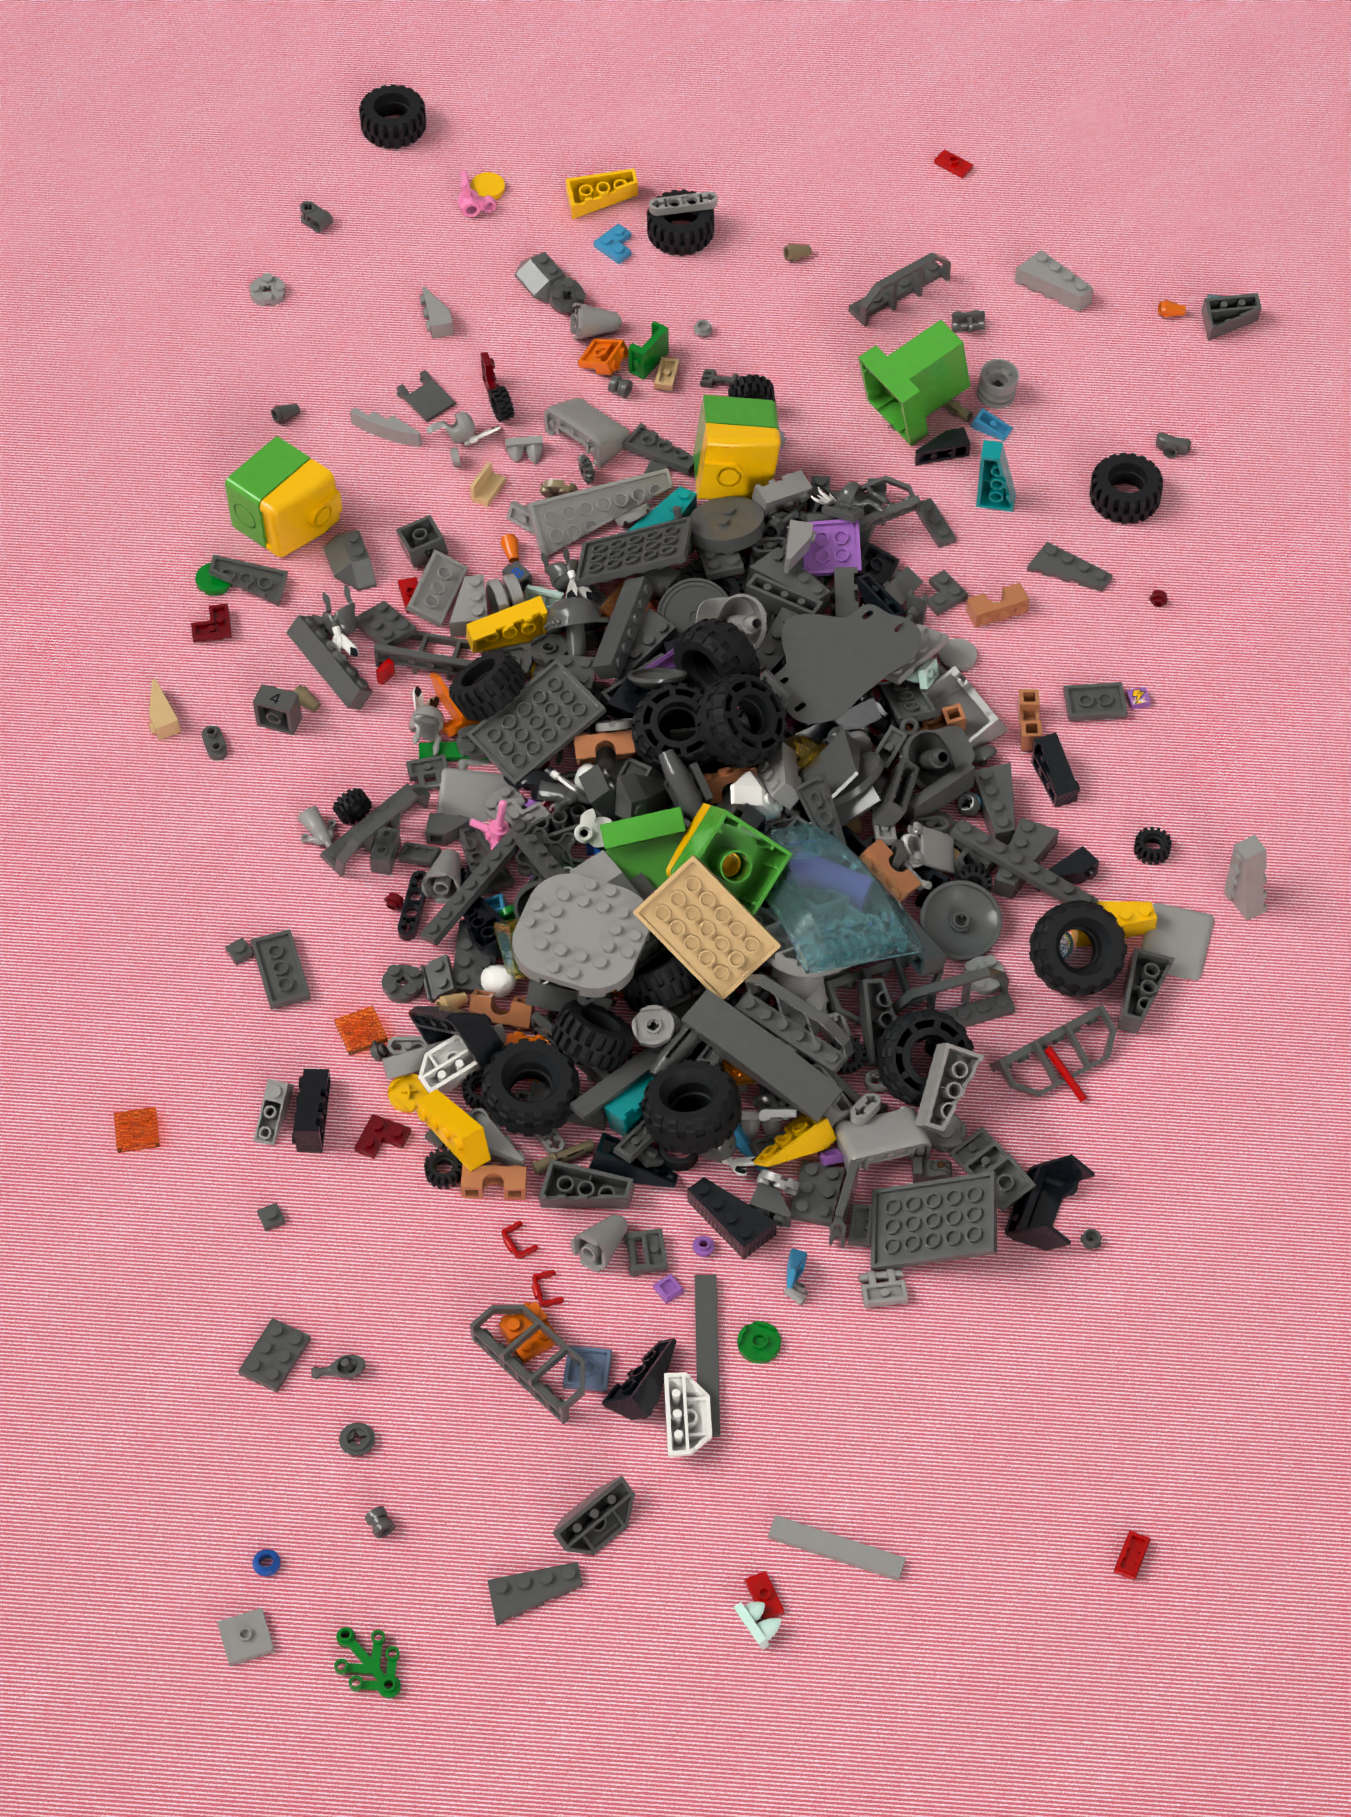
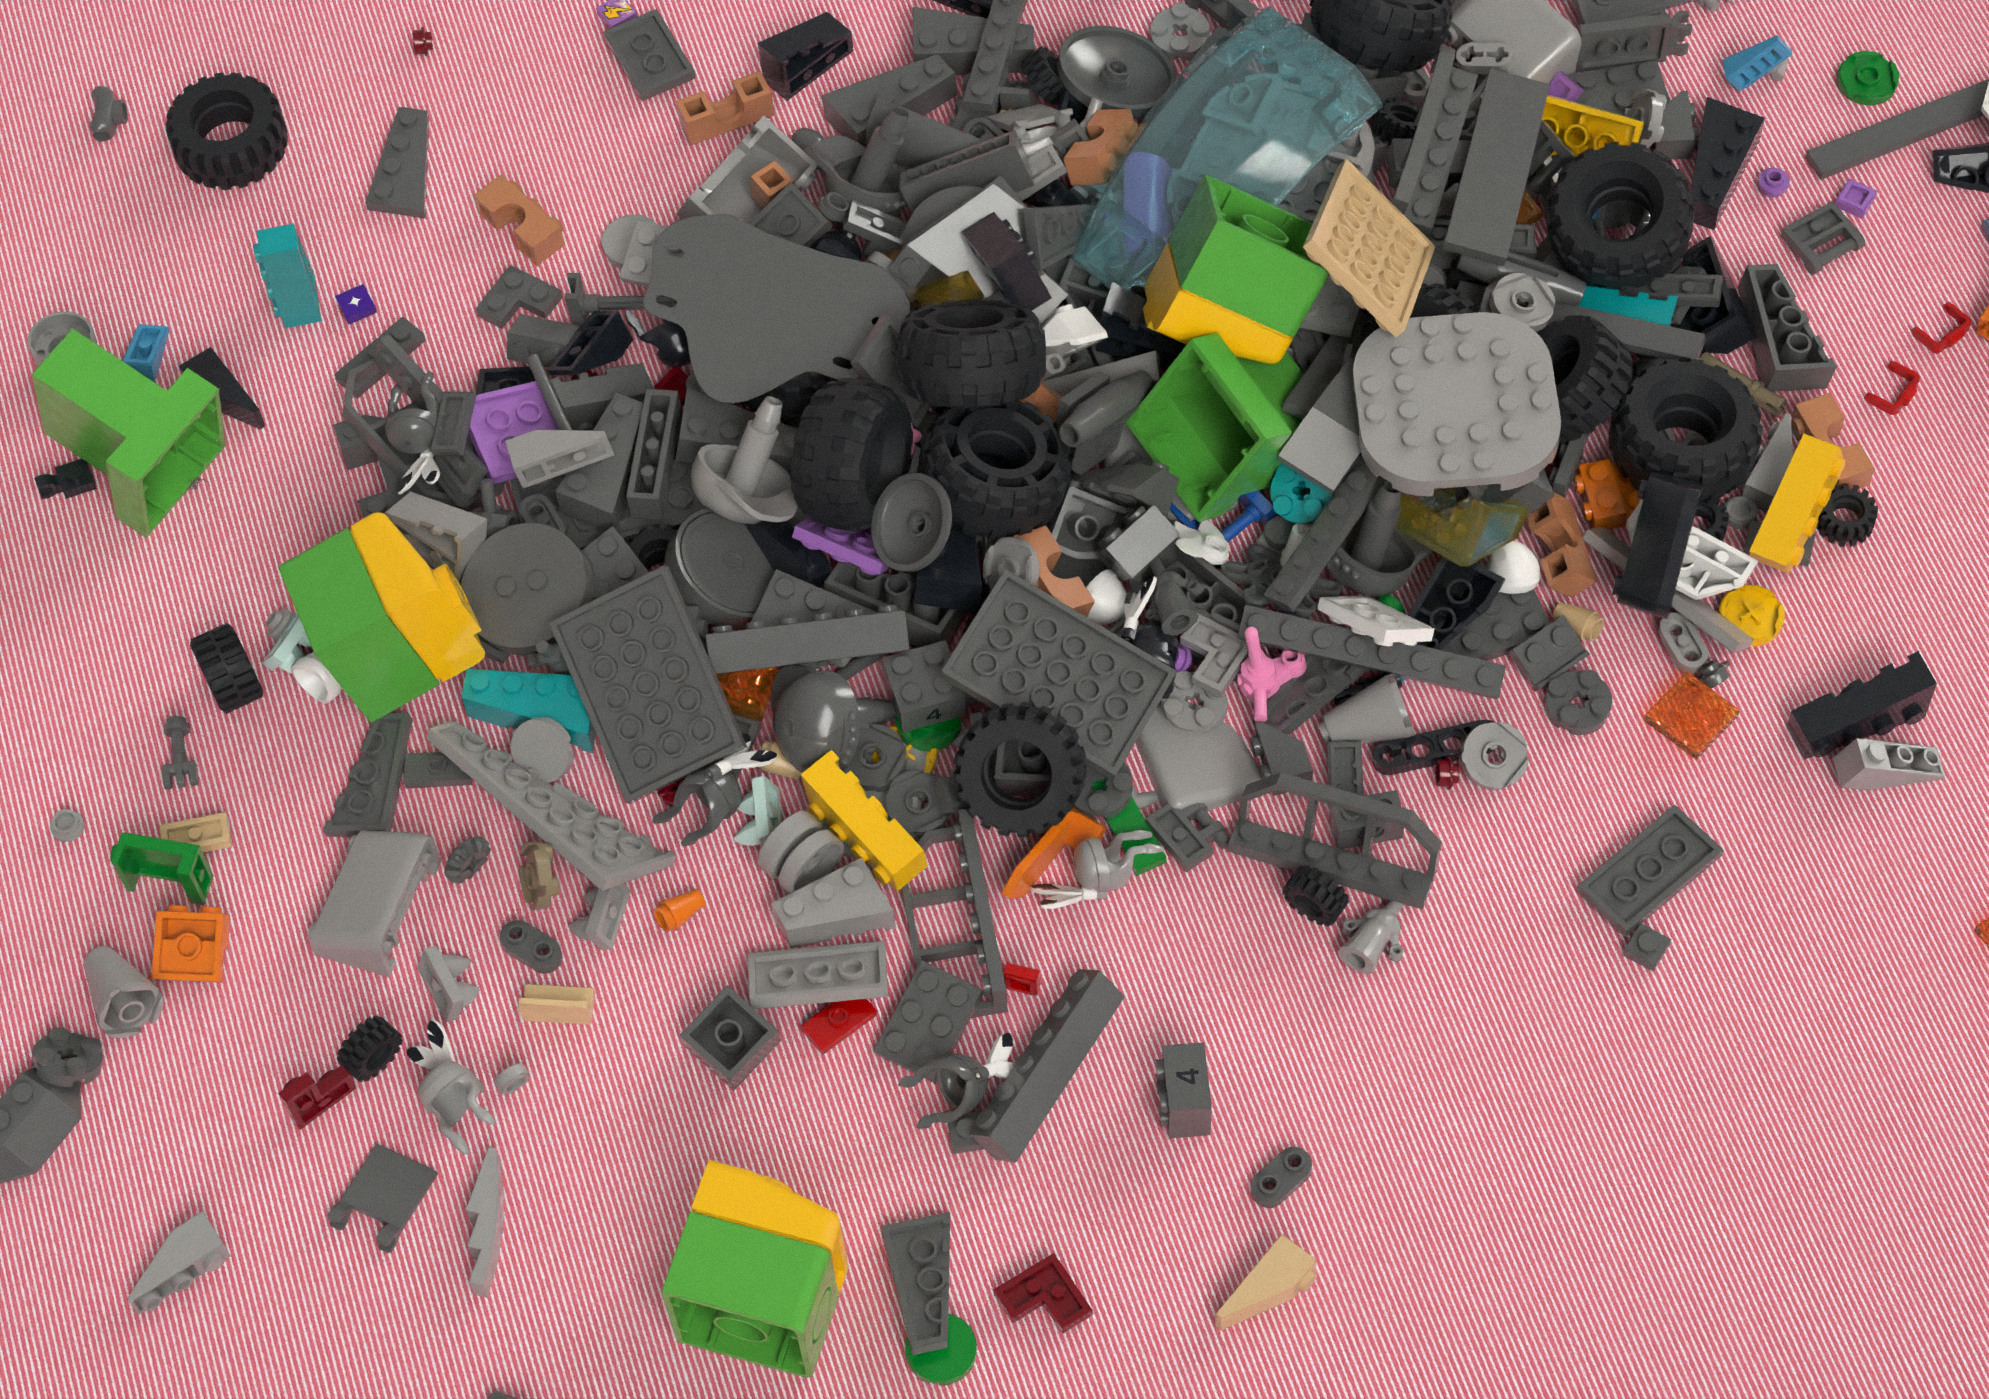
camera: 110 degrees left, 5 degrees up
(307, 698) = (1130, 1076): dark tan cone -> none
(350, 560) = (807, 1141): dark grey wedge -> none
(379, 1131) = (1834, 624): dark red plate -> none
(397, 924) = (1513, 755): none -> light grey plate
(491, 882) = (1375, 619): none -> white plate
(523, 575) = (739, 872): dark grey brick -> none
(526, 487) = (529, 945): none -> dark grey plate
(599, 1242) = (1844, 281): light grey cone -> none
(620, 386) = (252, 891): dark grey wheel -> none
(798, 760) = (1007, 261): none -> black wedge
(857, 563) = (548, 392): none -> dark grey bar
(977, 521) = (356, 304): none -> dark purple tile

